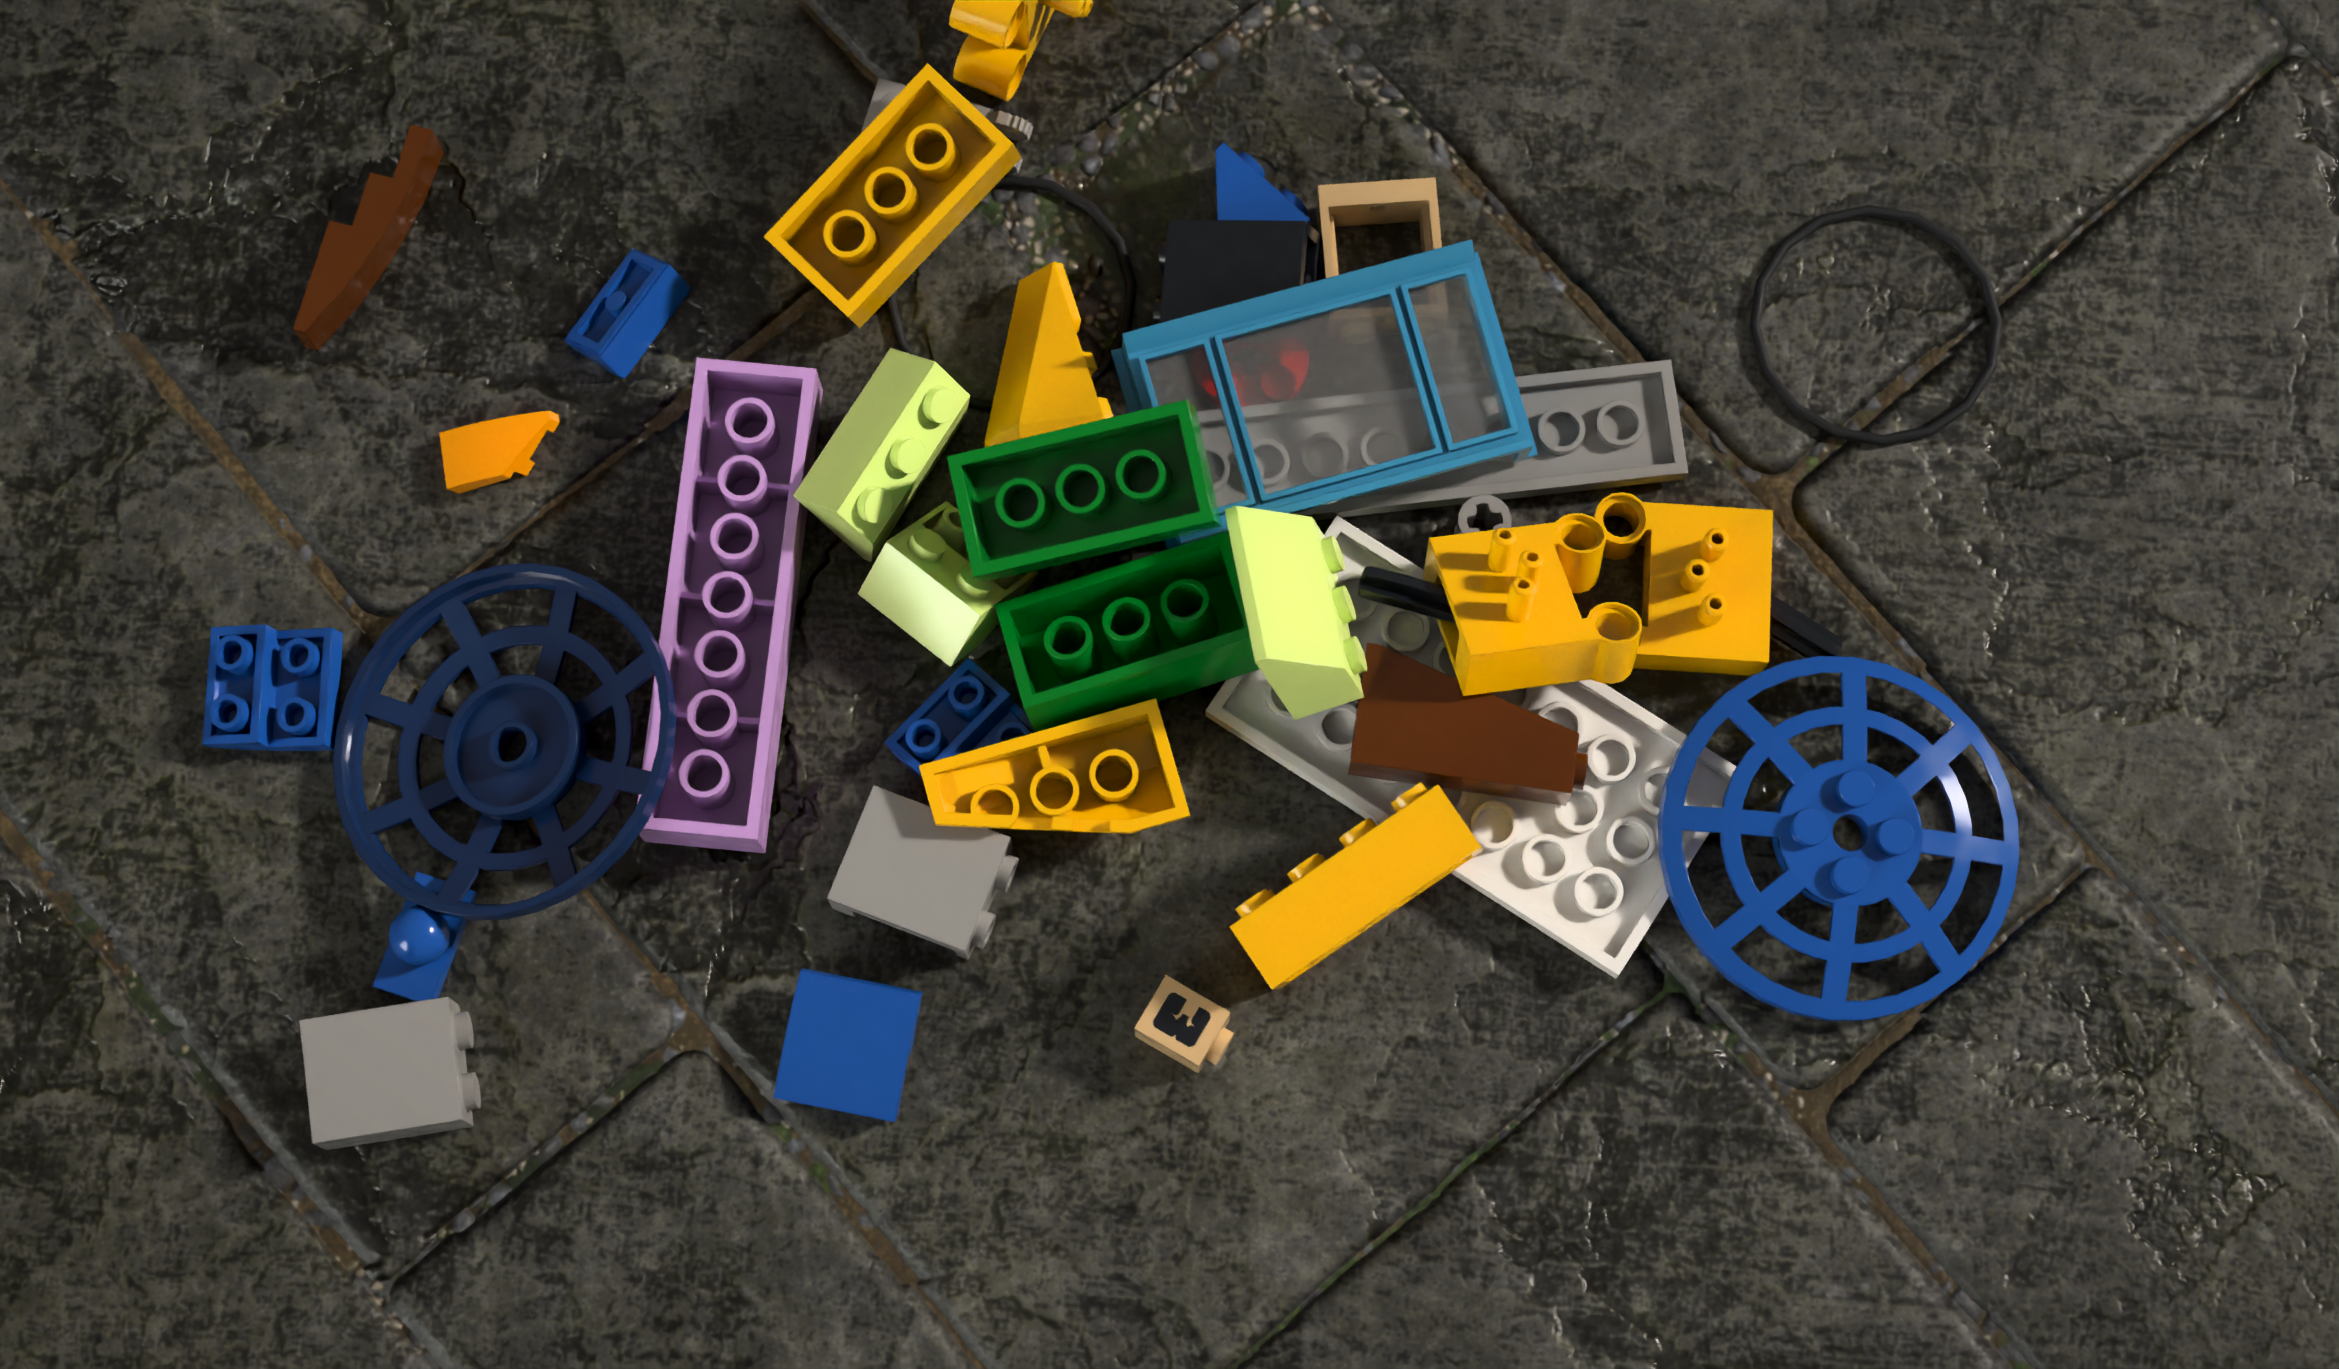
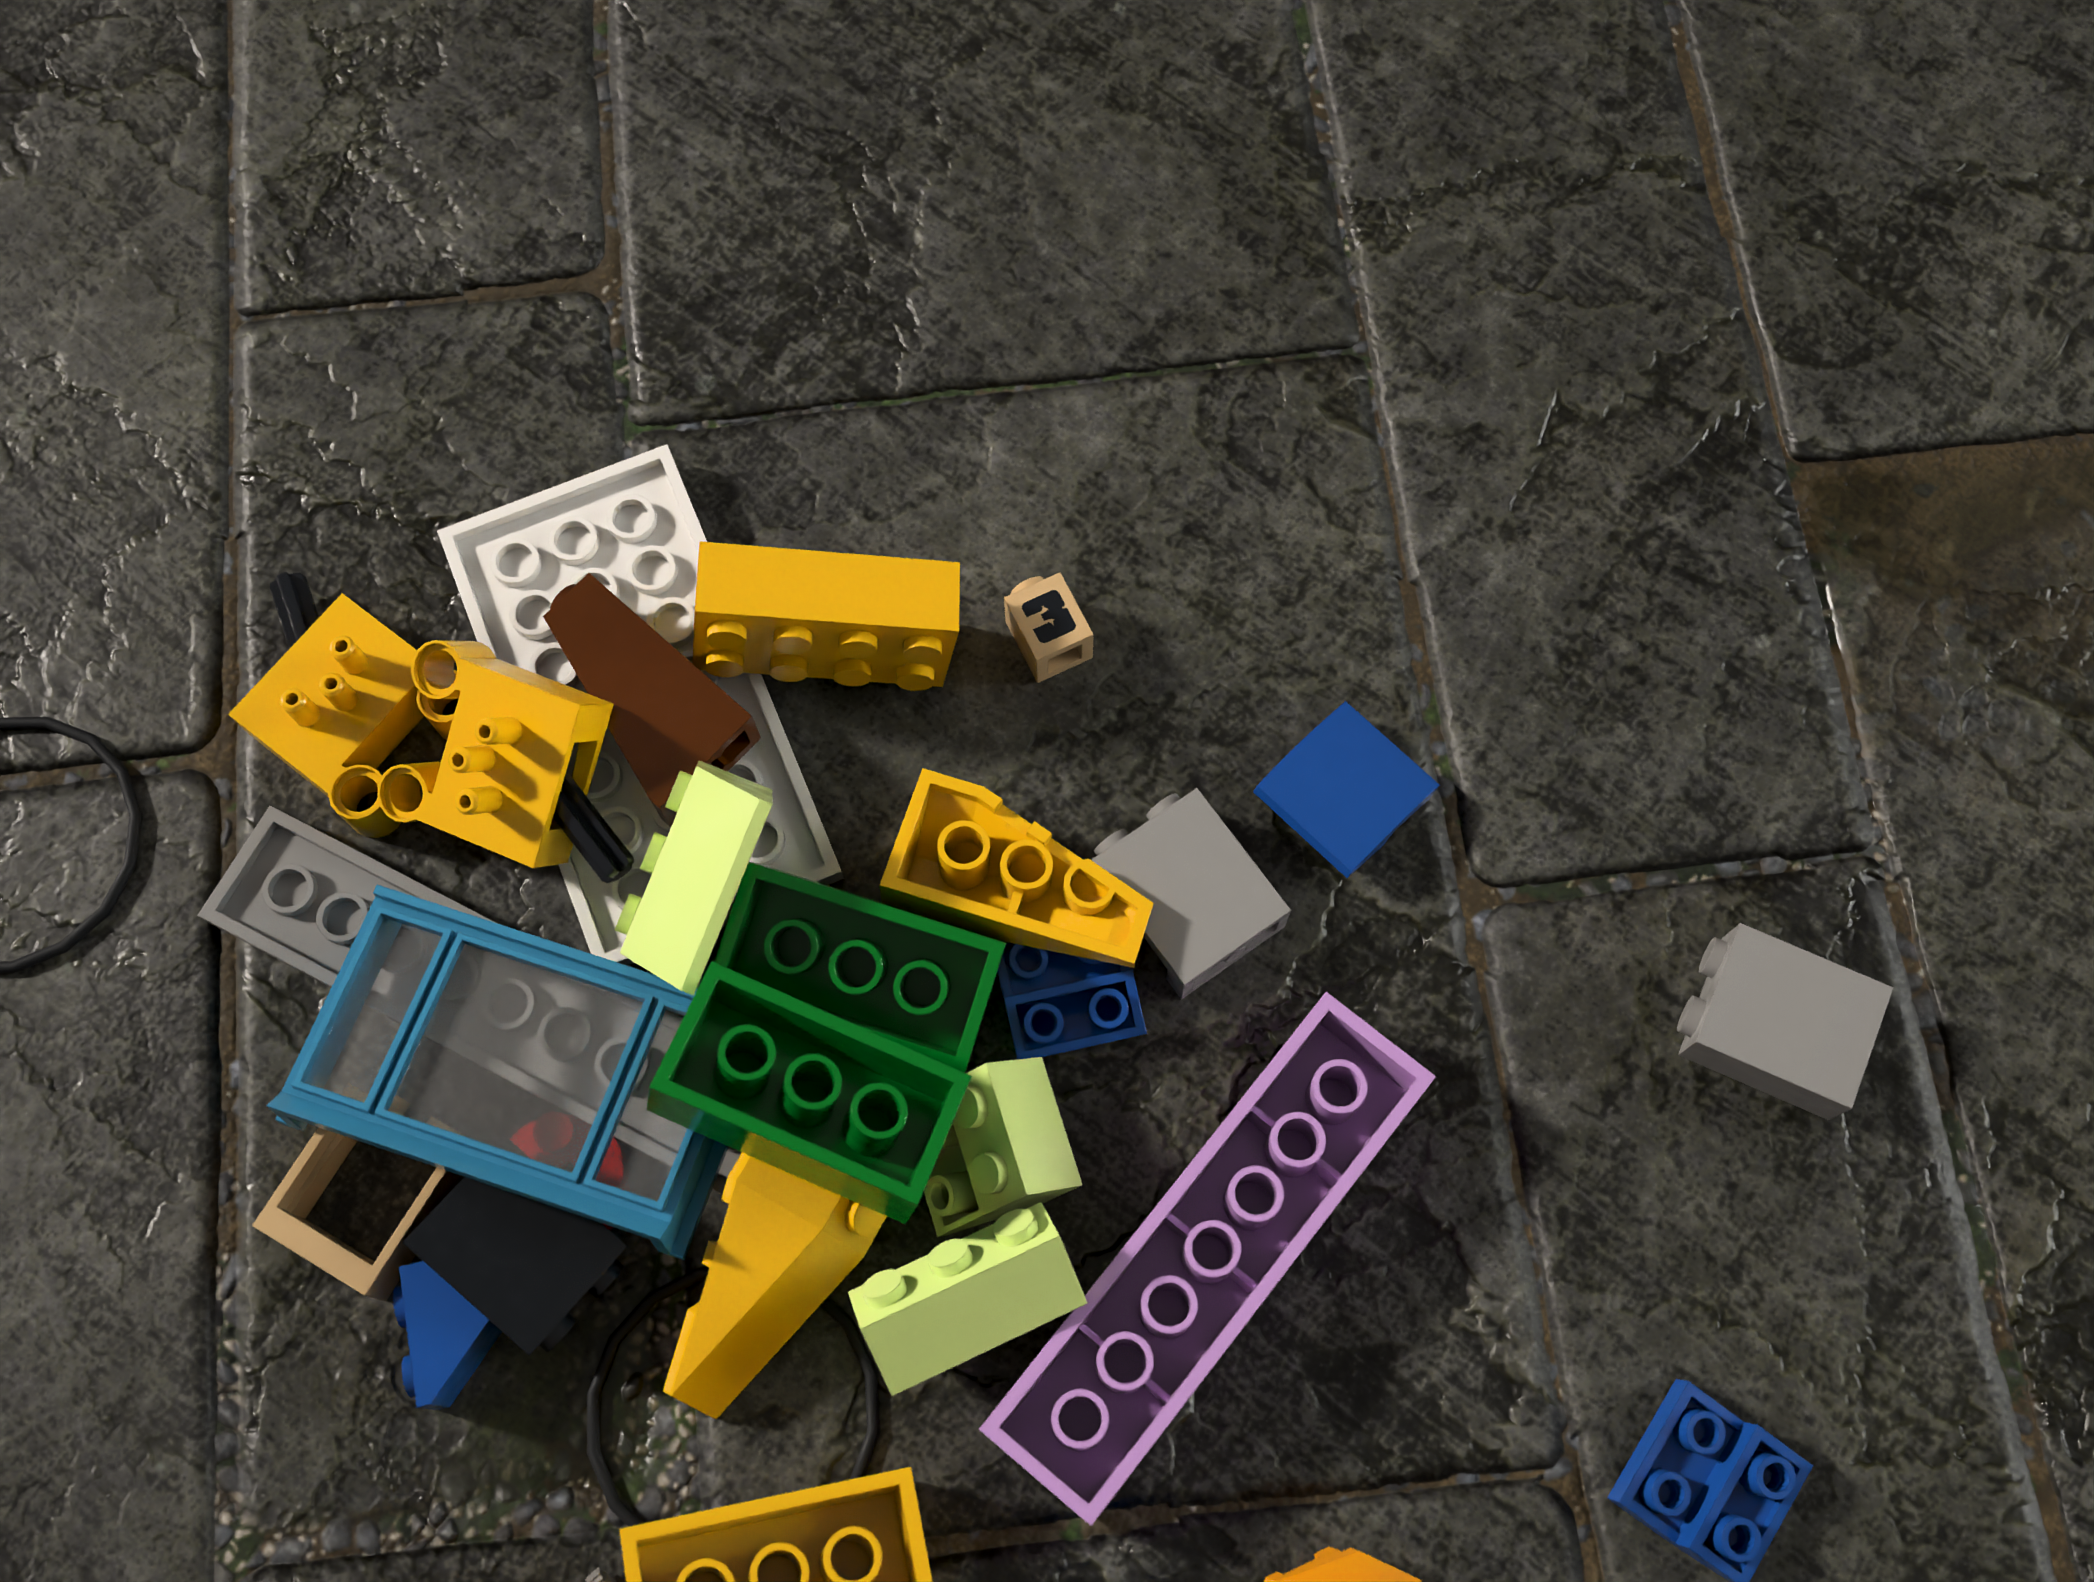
camera: 145 degrees left, 5 degrees down
(420, 948) = (1681, 1130): blue tile -> none
(481, 730) = (1544, 1265): dark blue dish -> none
(1486, 508) = (481, 893): light grey bush -> none
(1806, 846) = (412, 457): blue dish -> none

